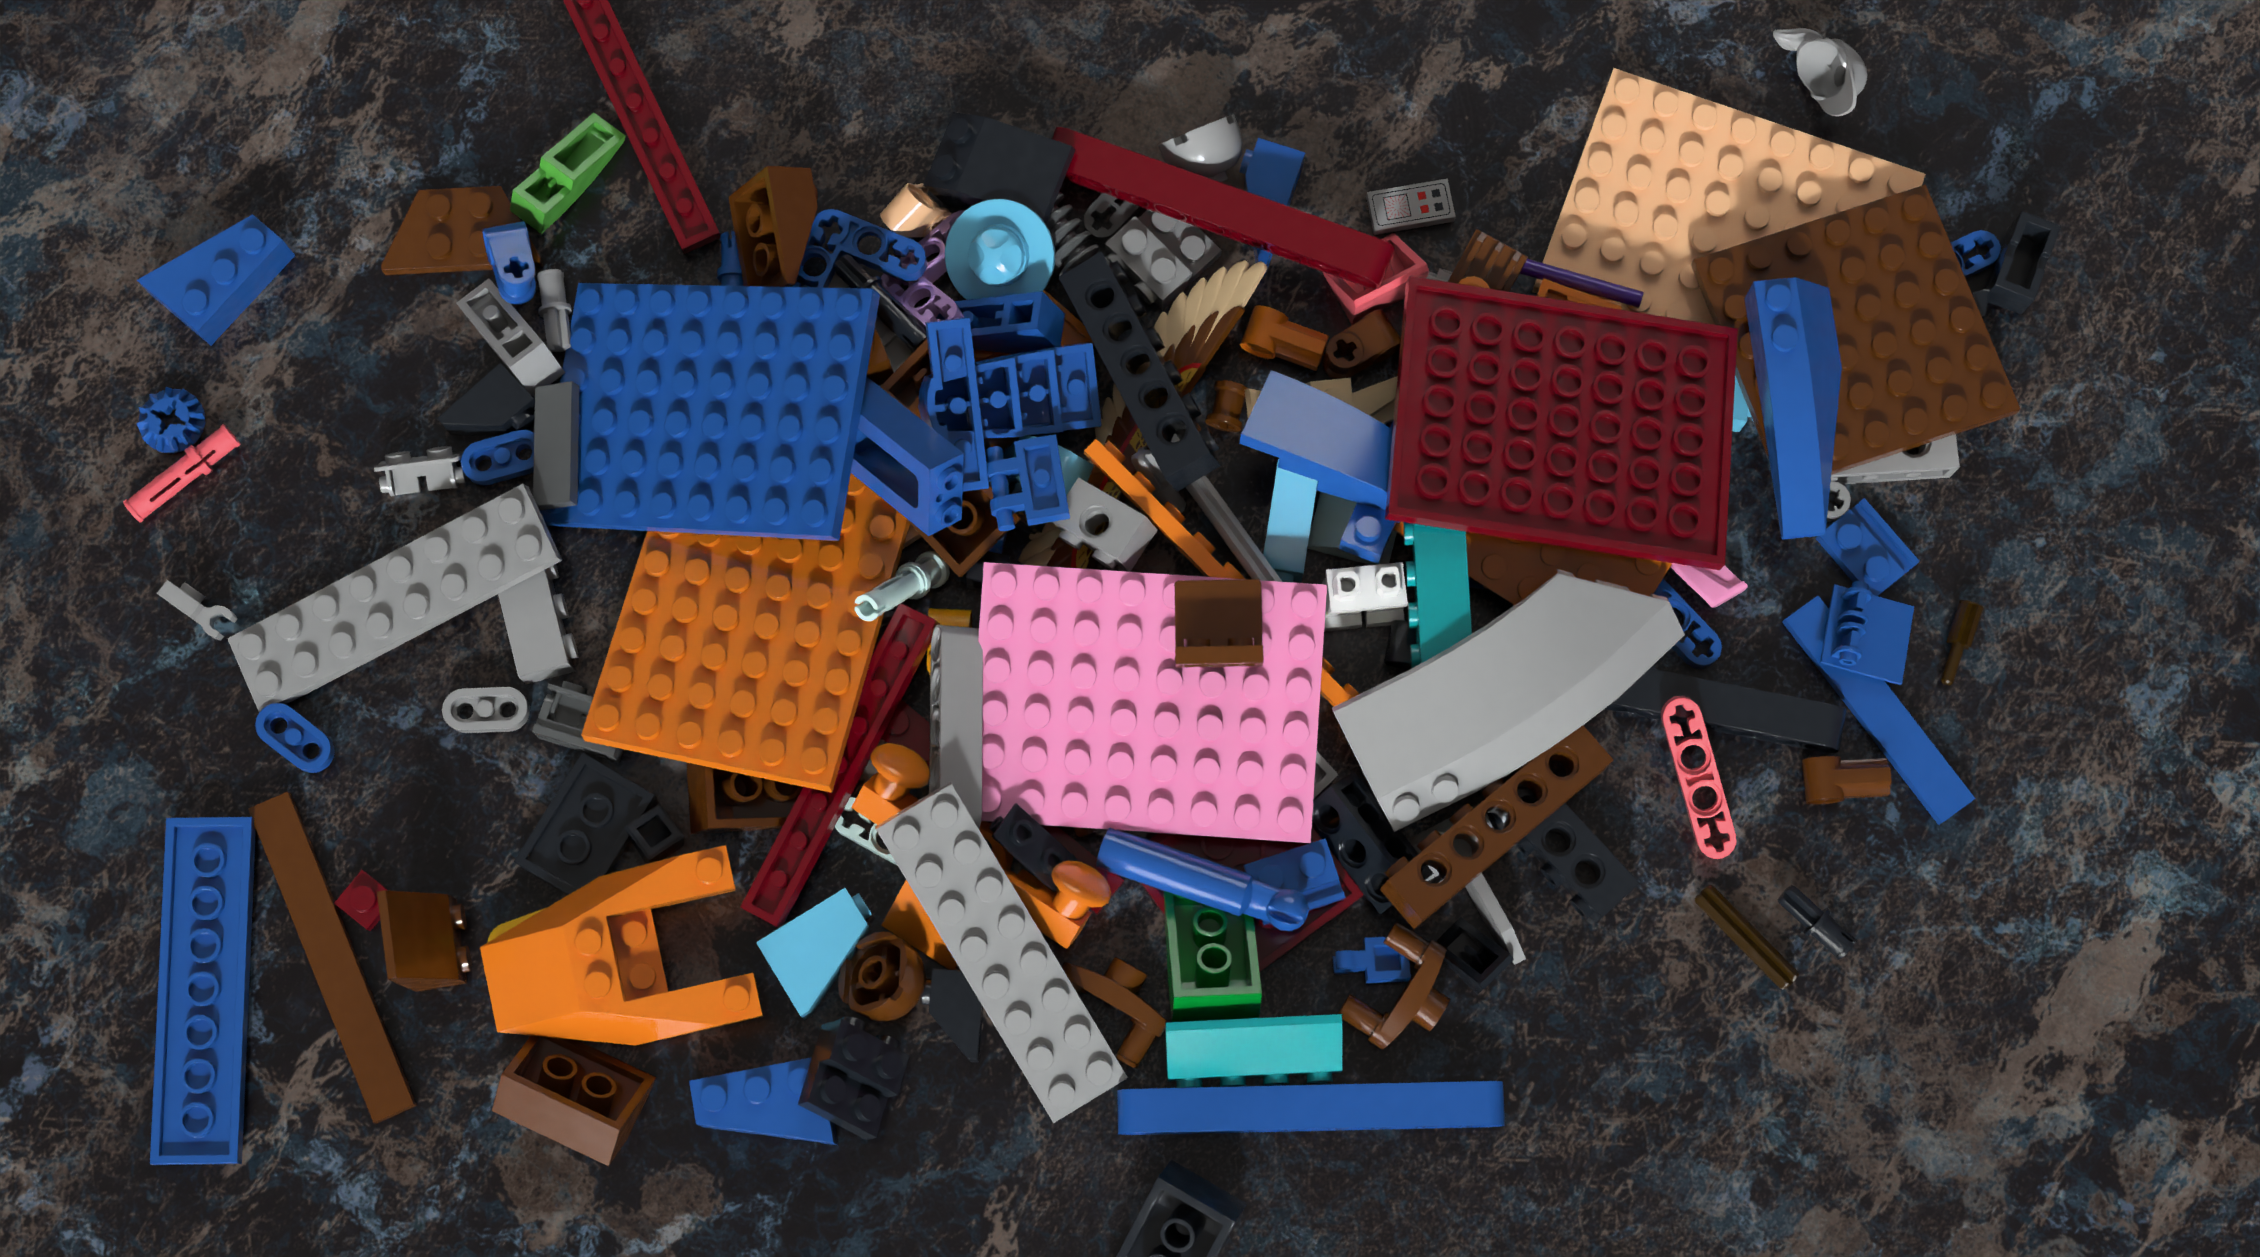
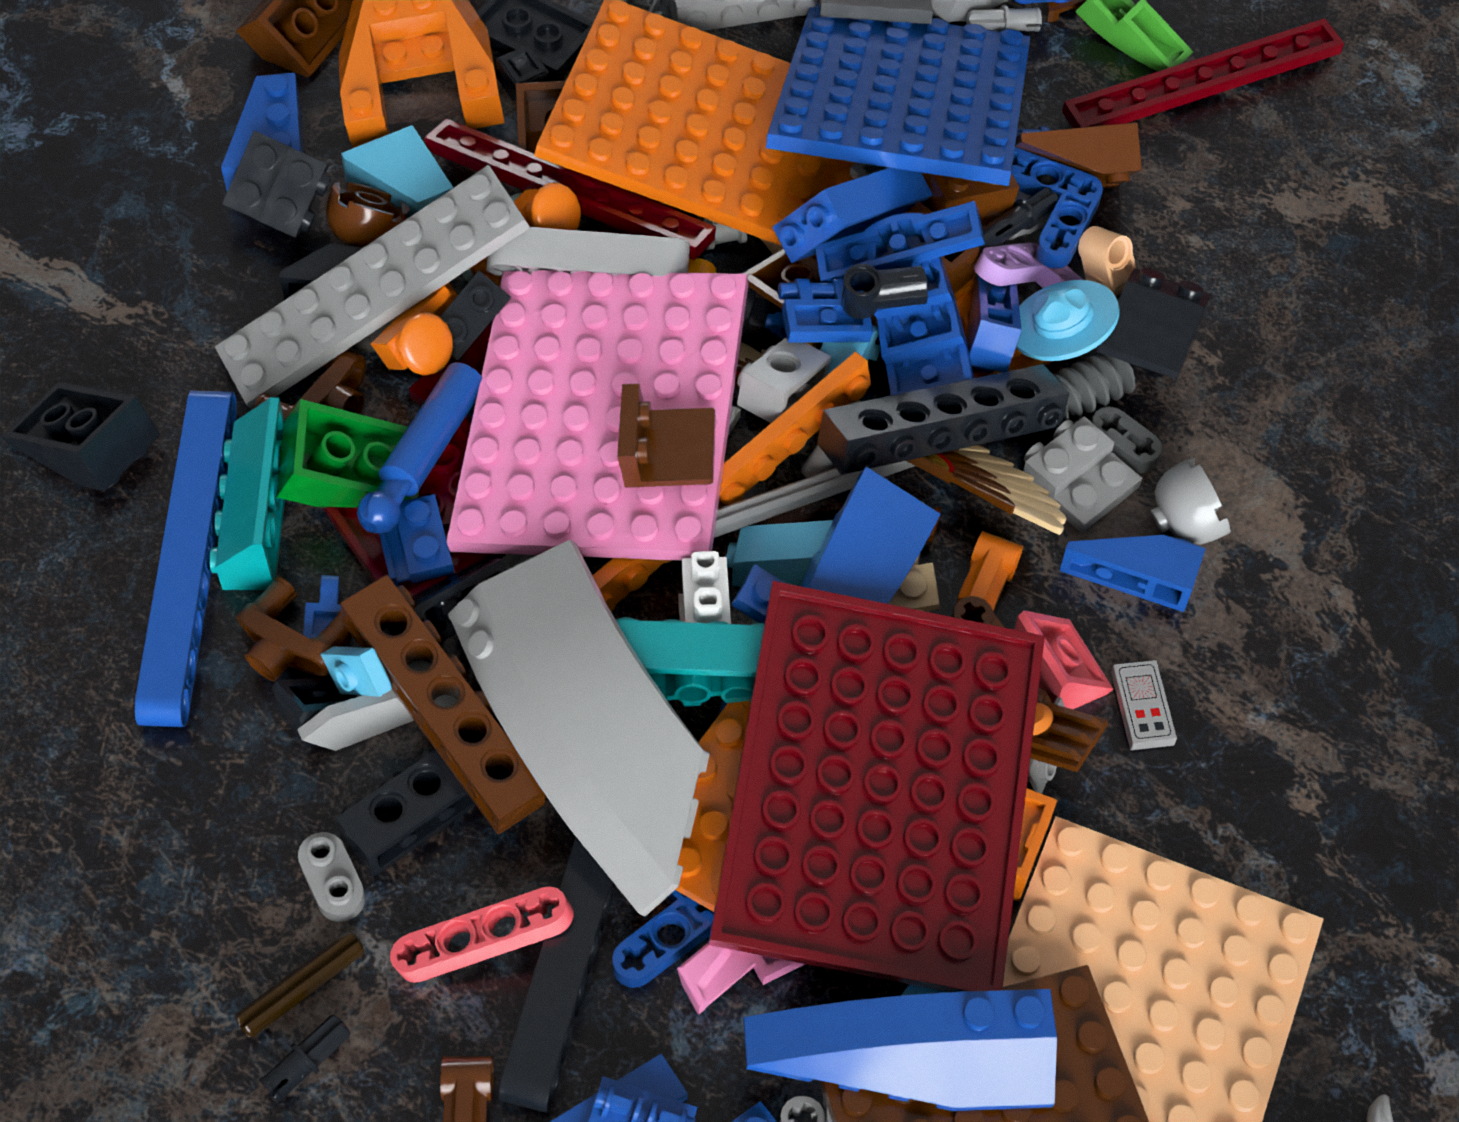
camera: 90 degrees right, 20 degrees down
(911, 581) = (739, 245): light aqua pin -> none
(1019, 416) = (882, 289): none -> black piece
(1226, 210) = (1119, 508): dark red beam -> none
(1465, 910) = (356, 671): none -> medium azure plate
(1583, 283) = (1058, 855): dark purple piece -> none
(1641, 922) = (331, 873): none -> light grey plate

